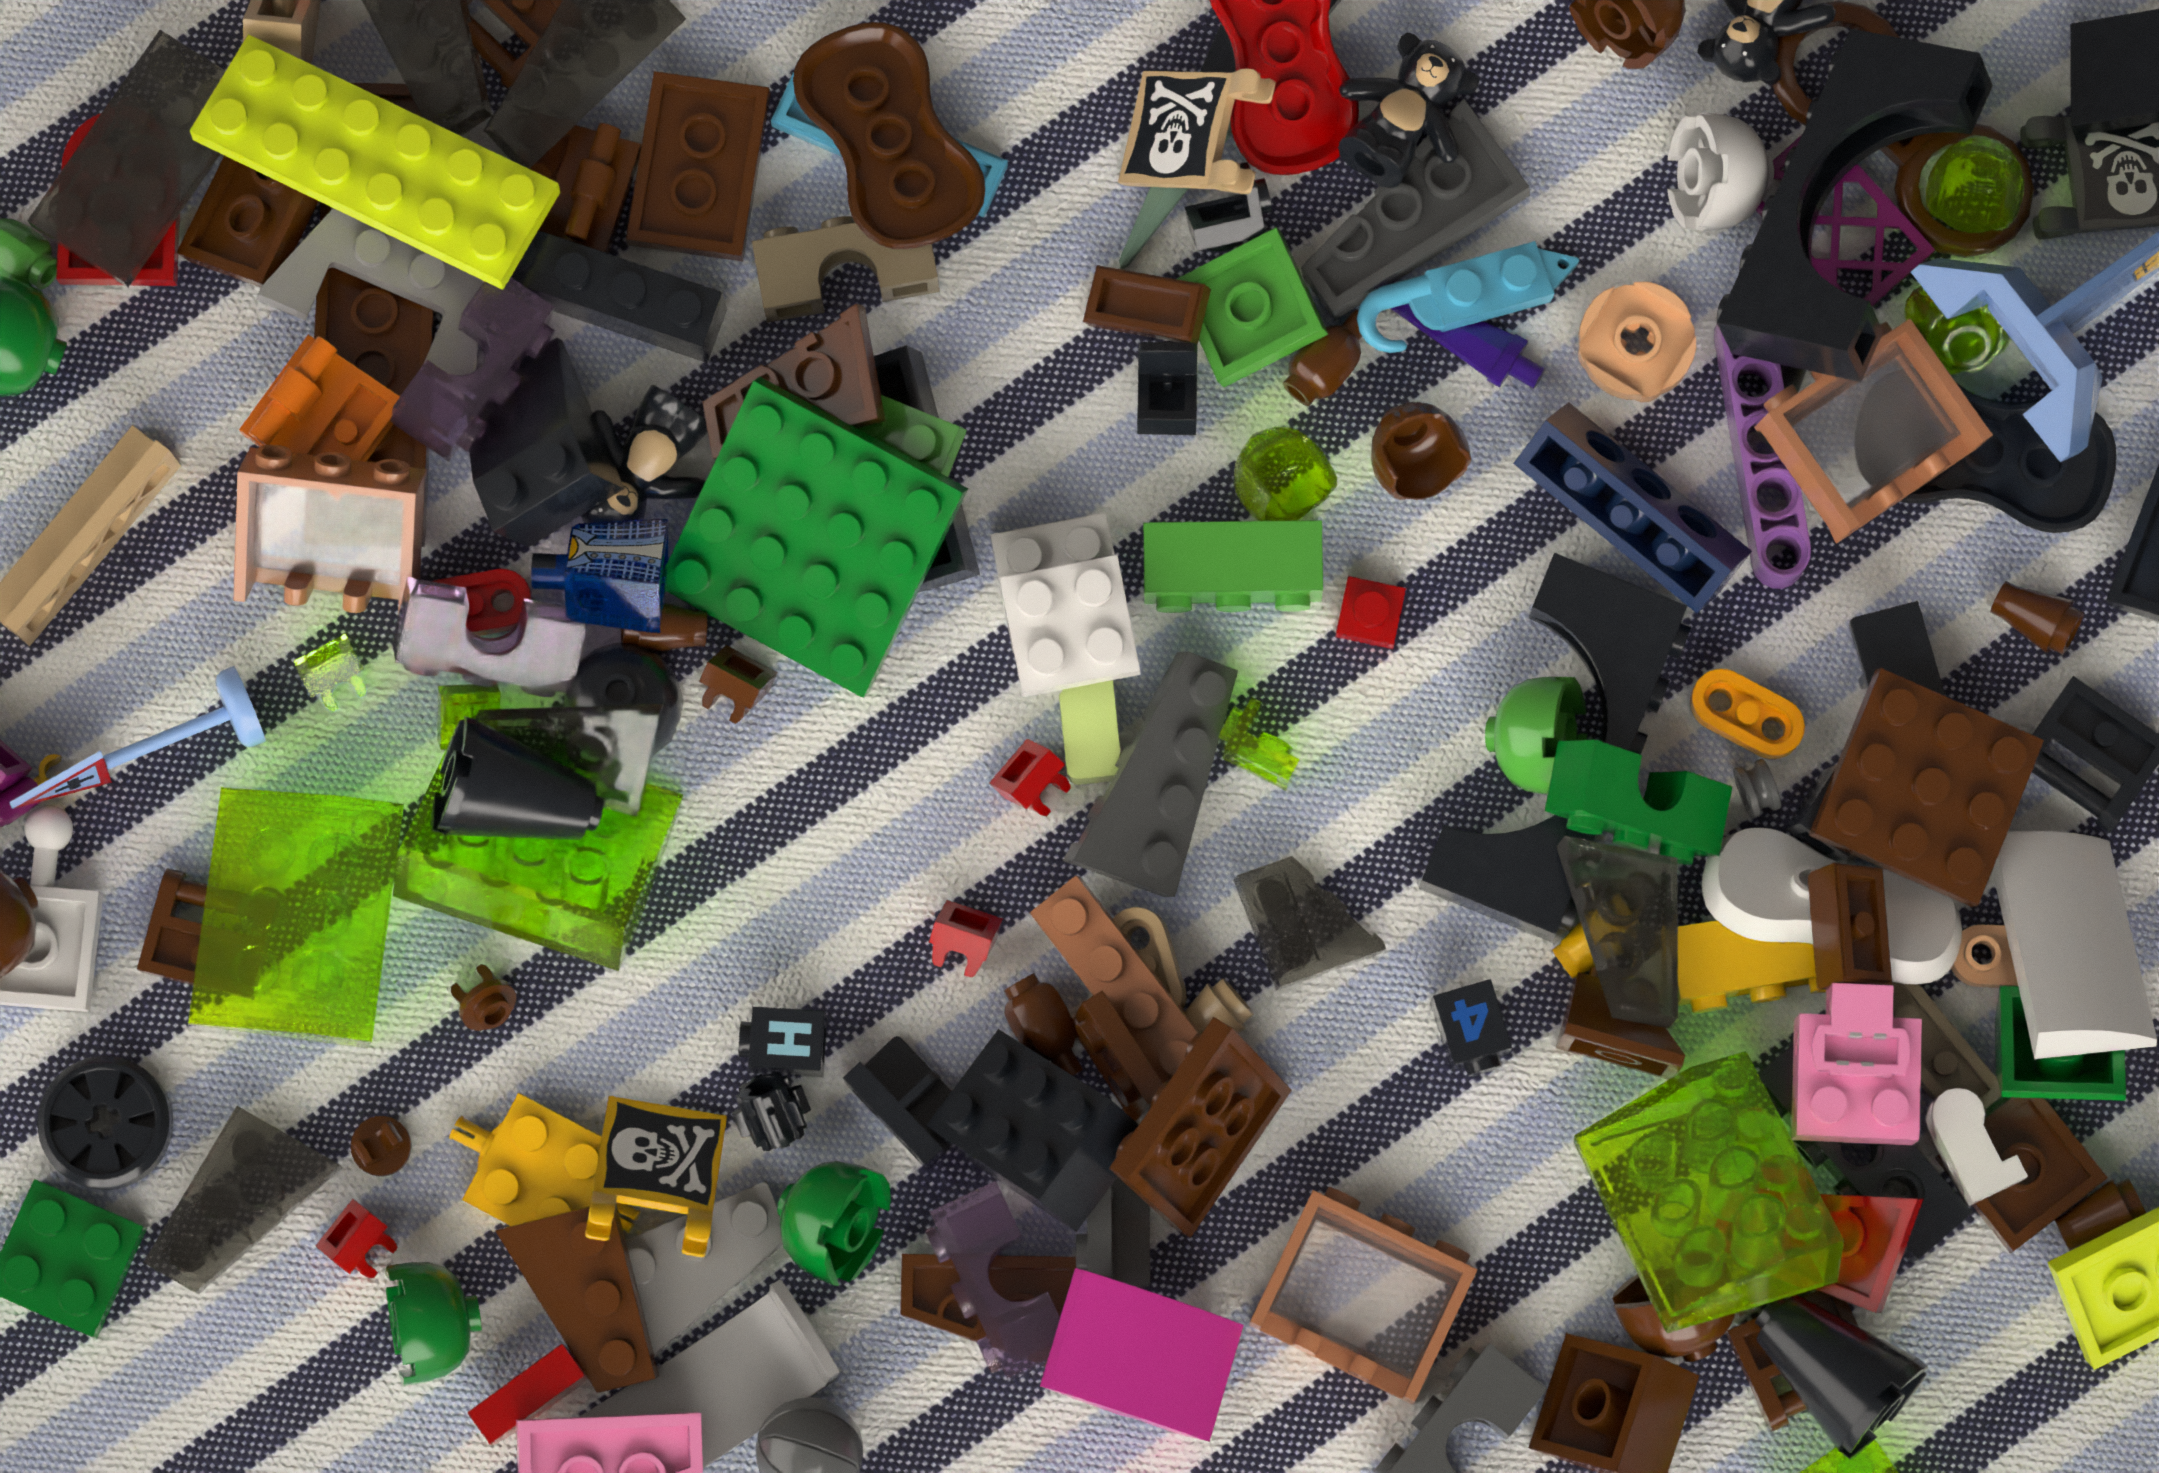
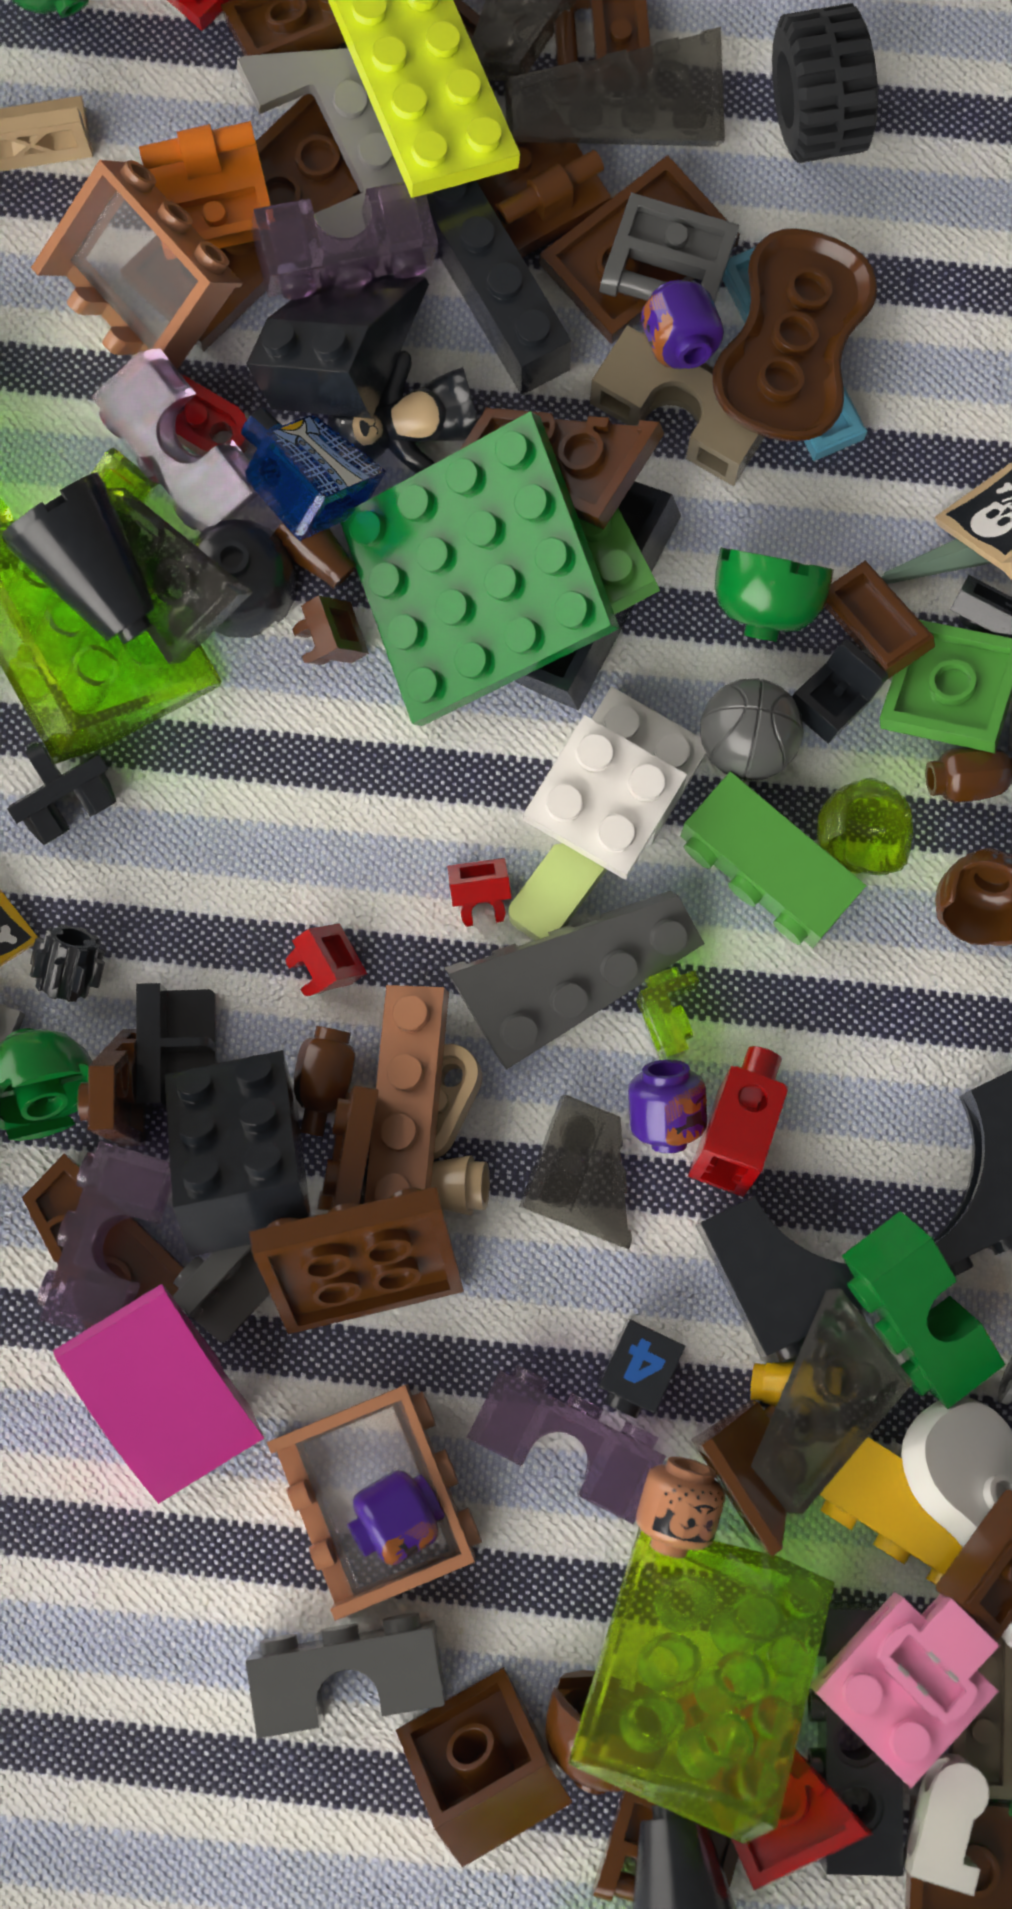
camera: 40 degrees right, 0 degrees up
(329, 666) = (56, 374): clear neon green tile -> none
(649, 962) = (39, 807): none -> black hips
(728, 141) = (669, 240): none -> dark grey plate
(784, 1041) = (125, 921): black brick -> none
(800, 208) = (682, 324): none -> dark purple head
(910, 1171) = (110, 1093): none -> reddish brown wing
(1048, 355) = (770, 592): none -> green cylinder
(1129, 475) = (751, 729): none -> dark grey piece
(1320, 816) = (667, 1105): none -> dark purple head
(1370, 612) = (842, 988): red plate -> none
(1386, 782) = (741, 1124): none -> red torso
(1392, 1290) = (395, 1517): none -> dark purple head
(1516, 1109) = (521, 1413): none -> clear purple arch
(1529, 728) = (888, 1180): bright green cylinder -> none
(1588, 1094) = (680, 1506): none -> nougat head

